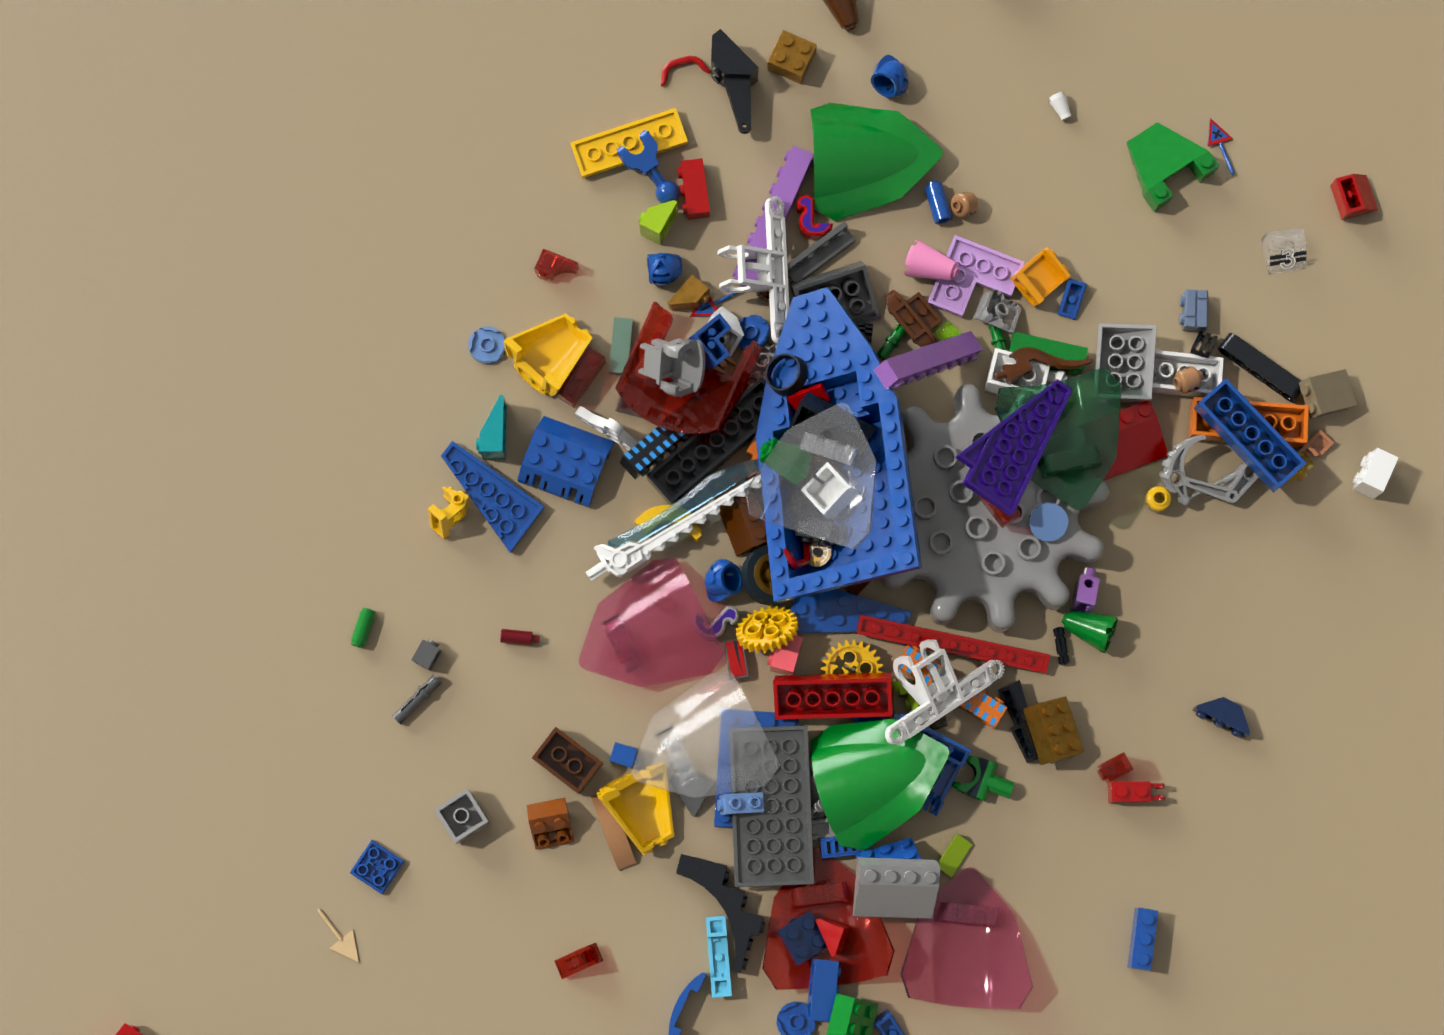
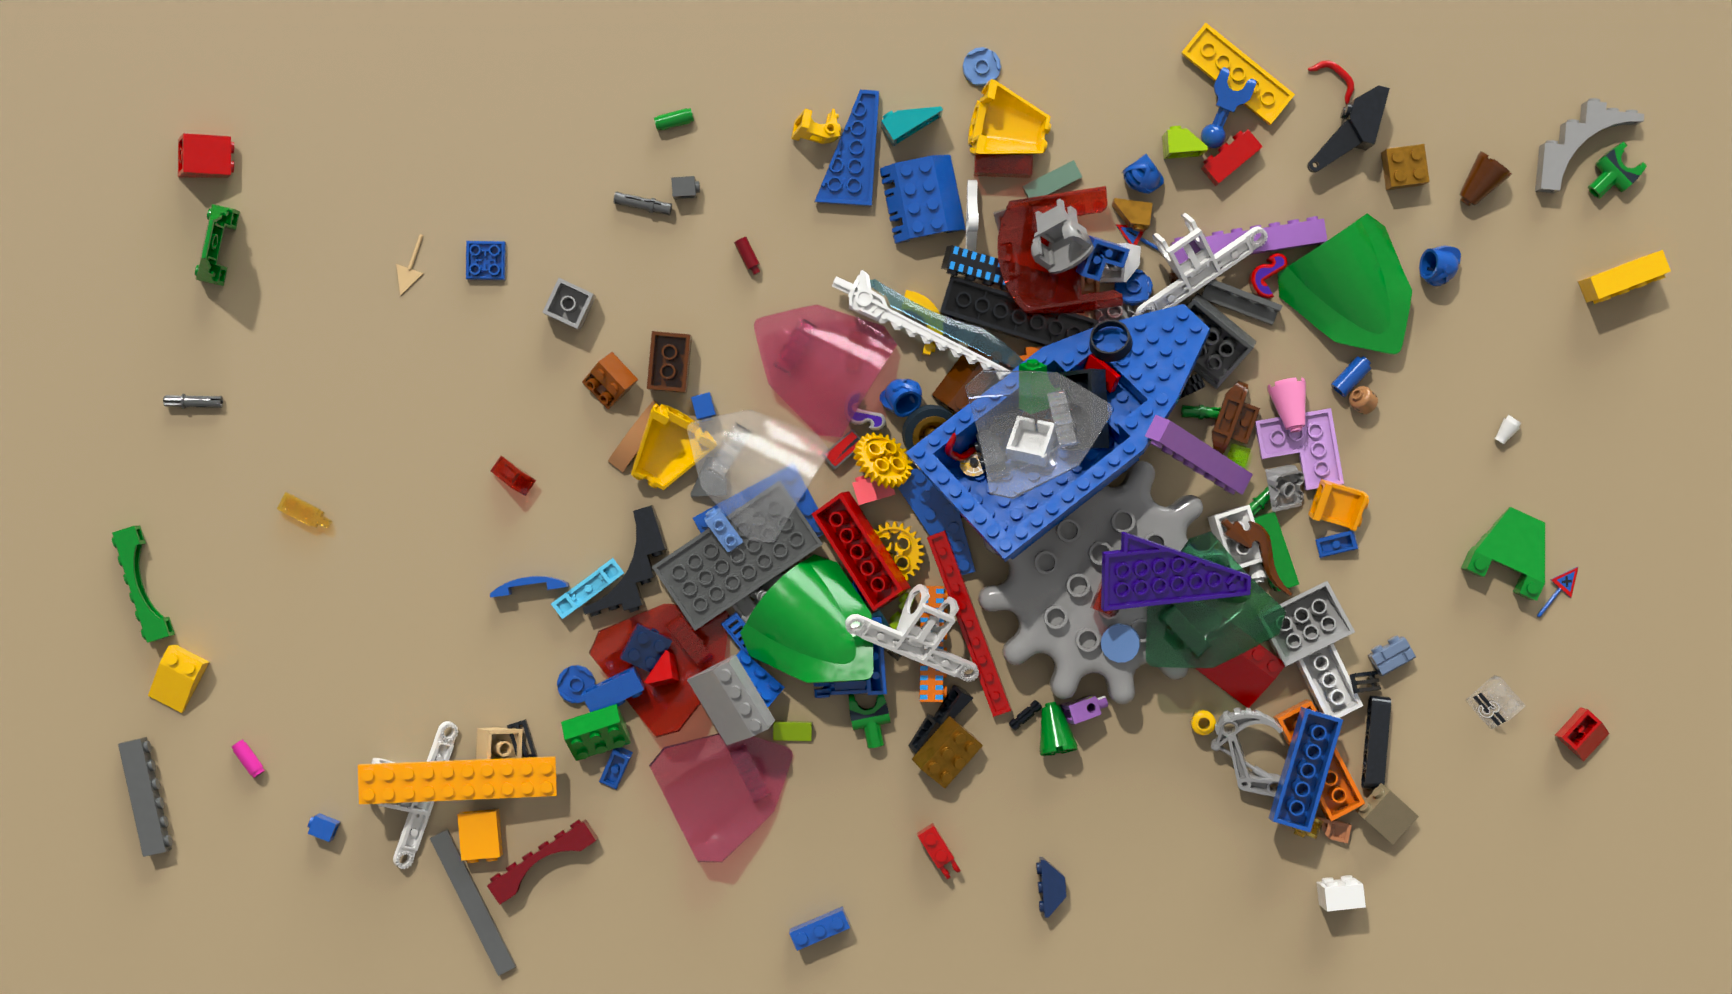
camera: 55 degrees right, 10 degrees up
(552, 264) = (1086, 76): clear red arch -> none
(1114, 768) = (947, 821): clear red slope -> none
(1188, 380) = (1323, 687): medium nougat head -> none

